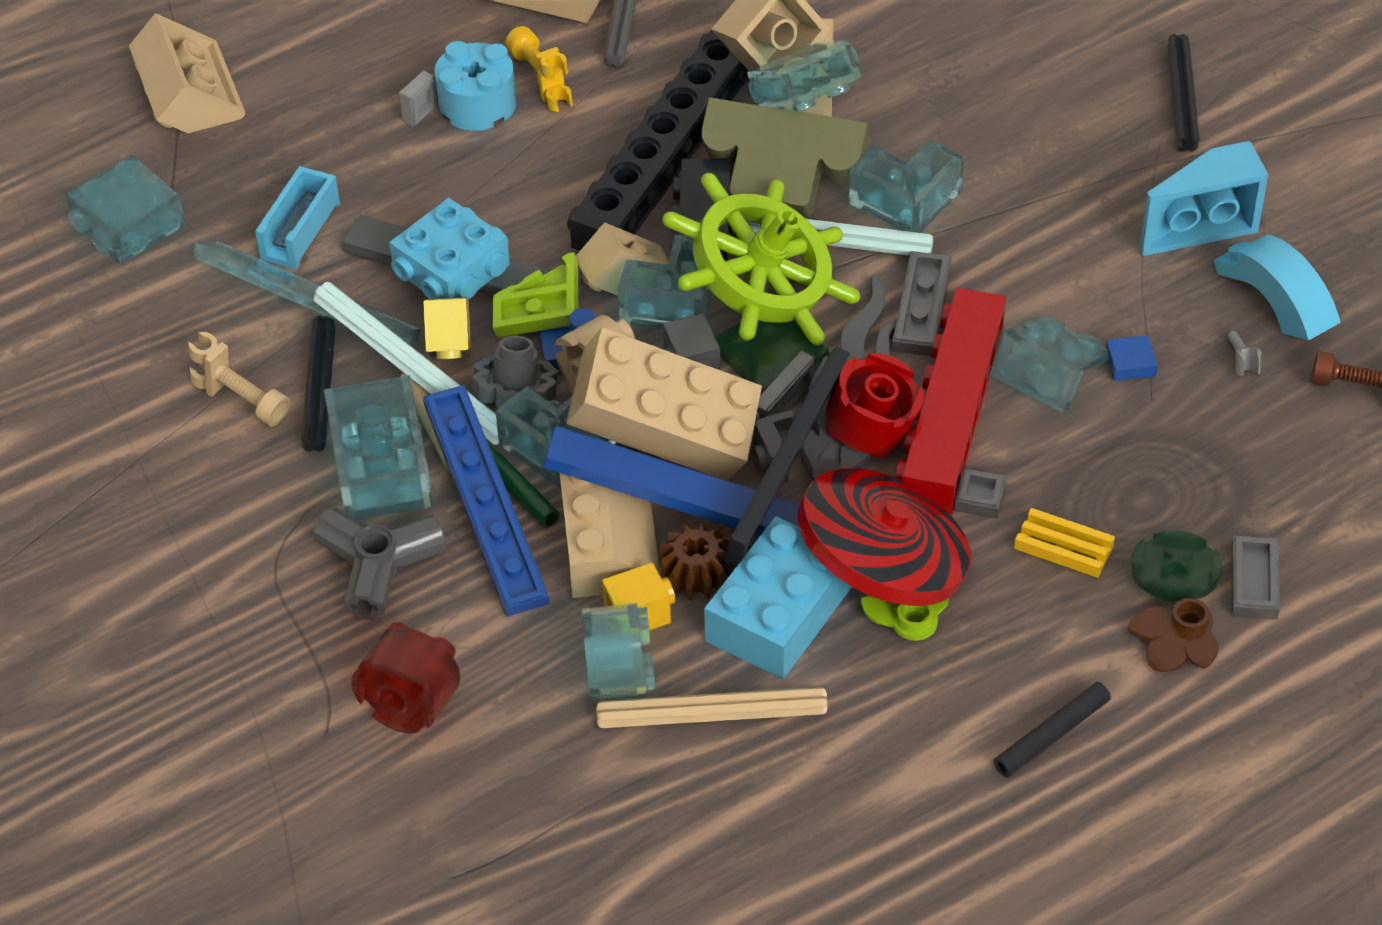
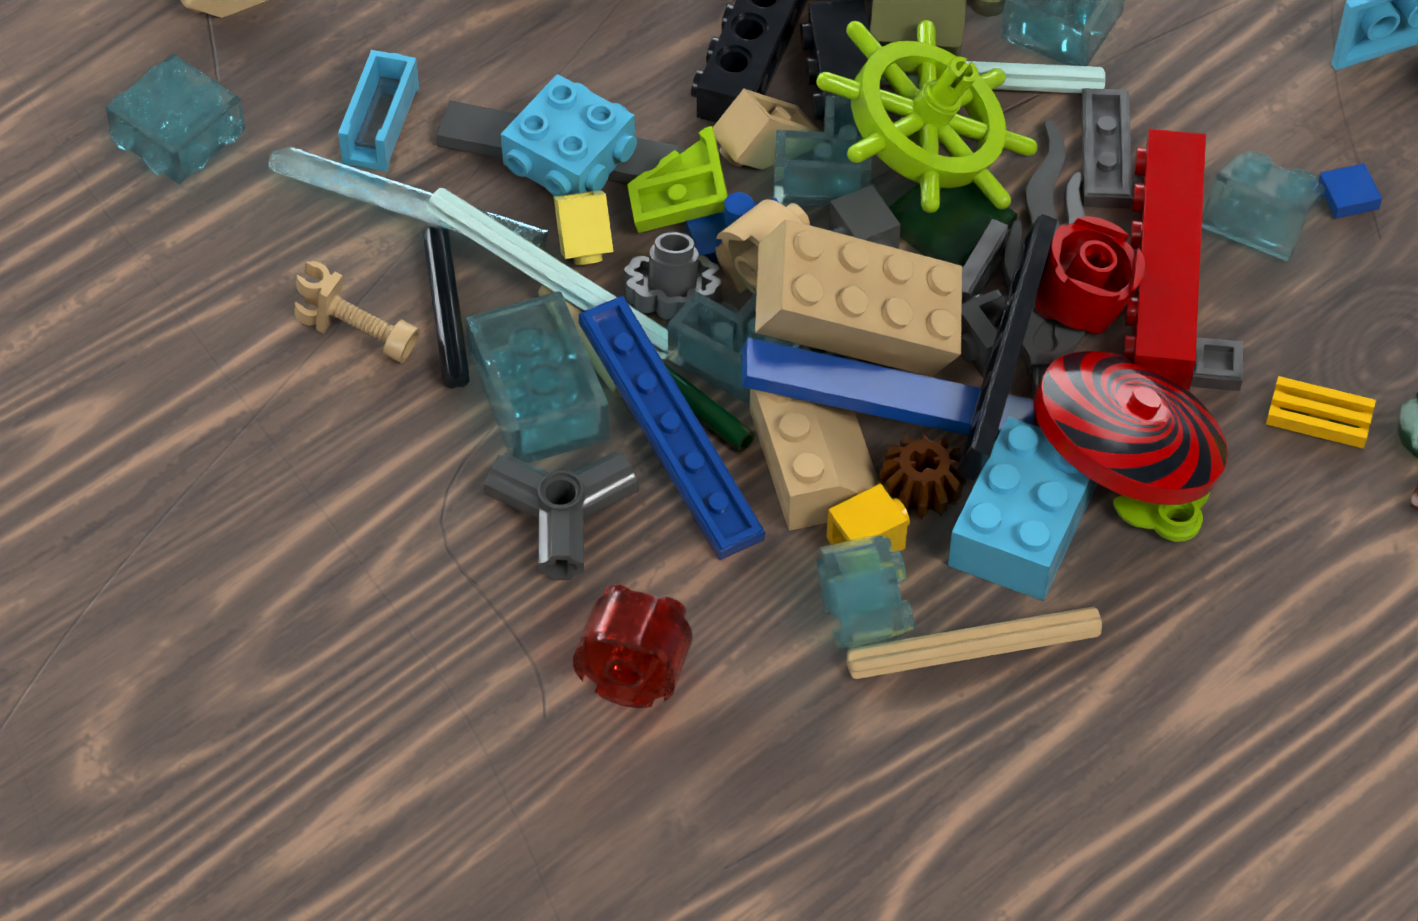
camera: 10 degrees left, 5 degrees up
(1052, 729) = (1351, 628): black piece -> none

